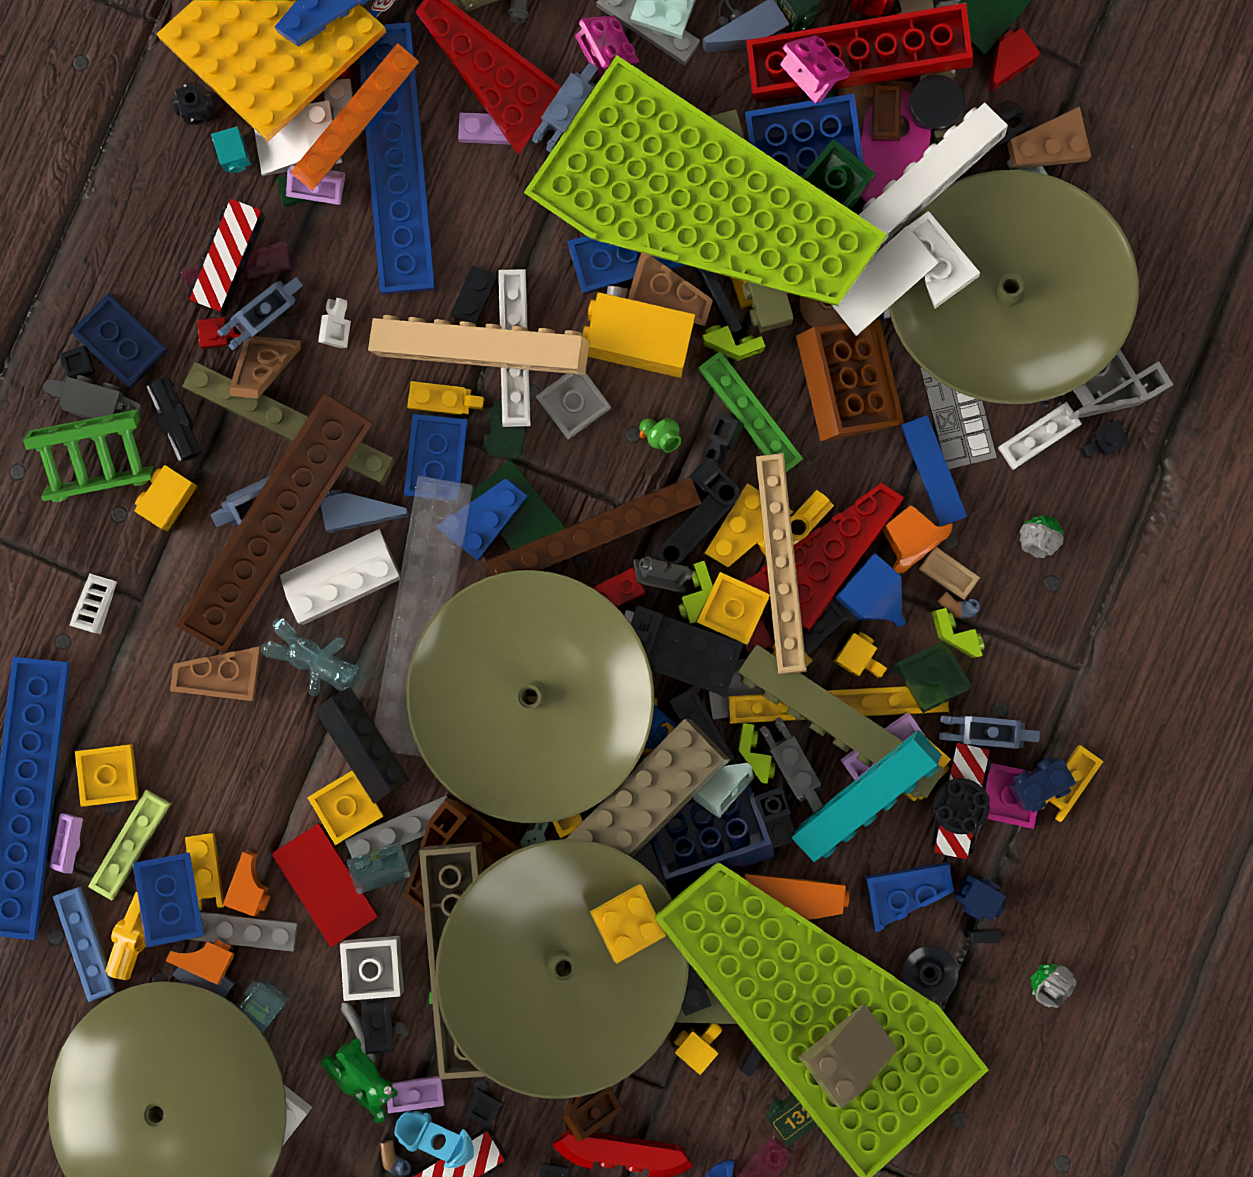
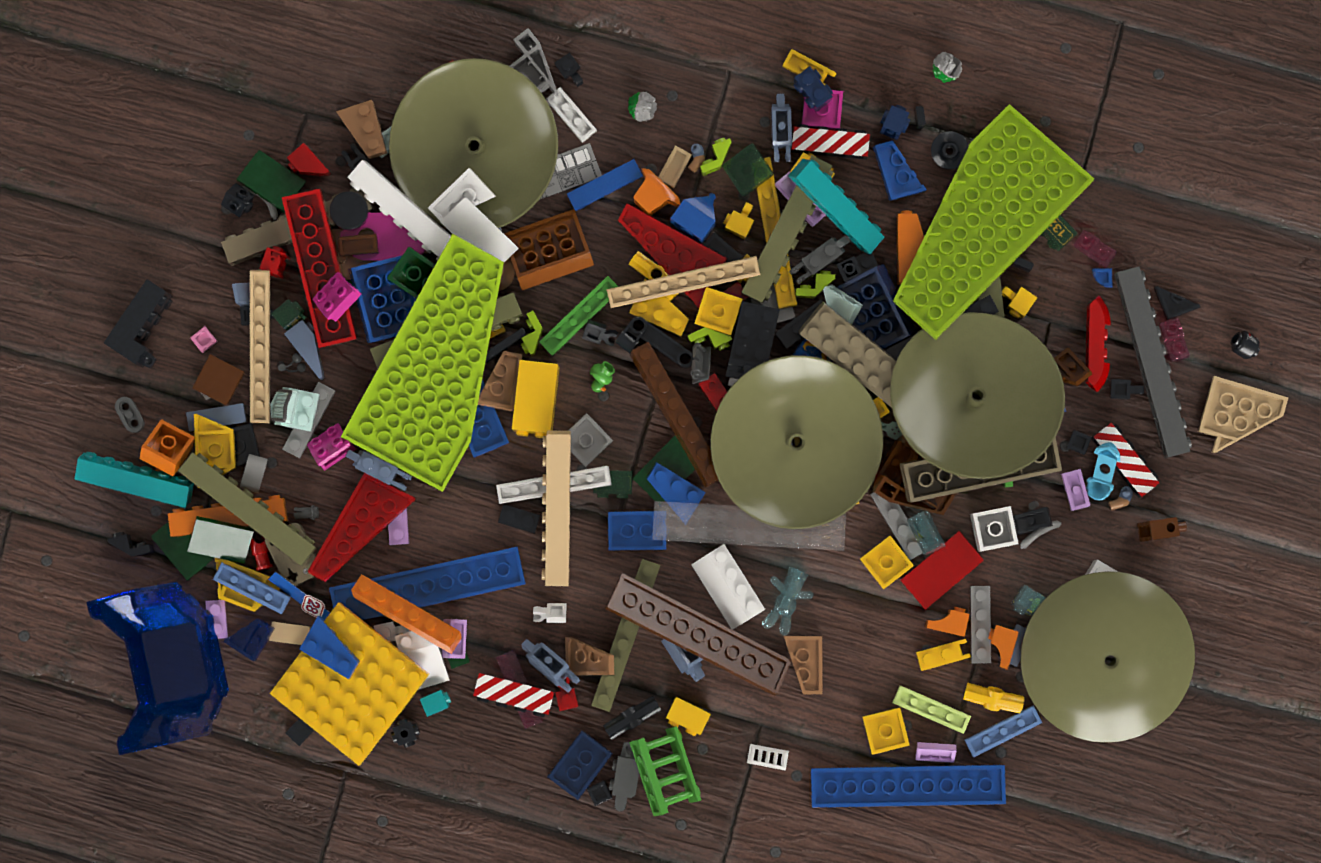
camera: 90 degrees left, 0 degrees up
(168, 900) = (965, 674): blue plate -> none
(350, 511) = (681, 582): sand blue slope -> none
(359, 1077) = (1065, 531): green animal -> none
(361, 745) = (843, 555): black brick -> none
(442, 399) = (594, 532): yellow hinge -> none
(618, 291) = (506, 418): light grey hinge -> none
(627, 923) = (942, 356): yellow plate -> none
(849, 1056) = (1011, 198): dark tan slope -> none
(960, 806) = (834, 141): black tile -> none

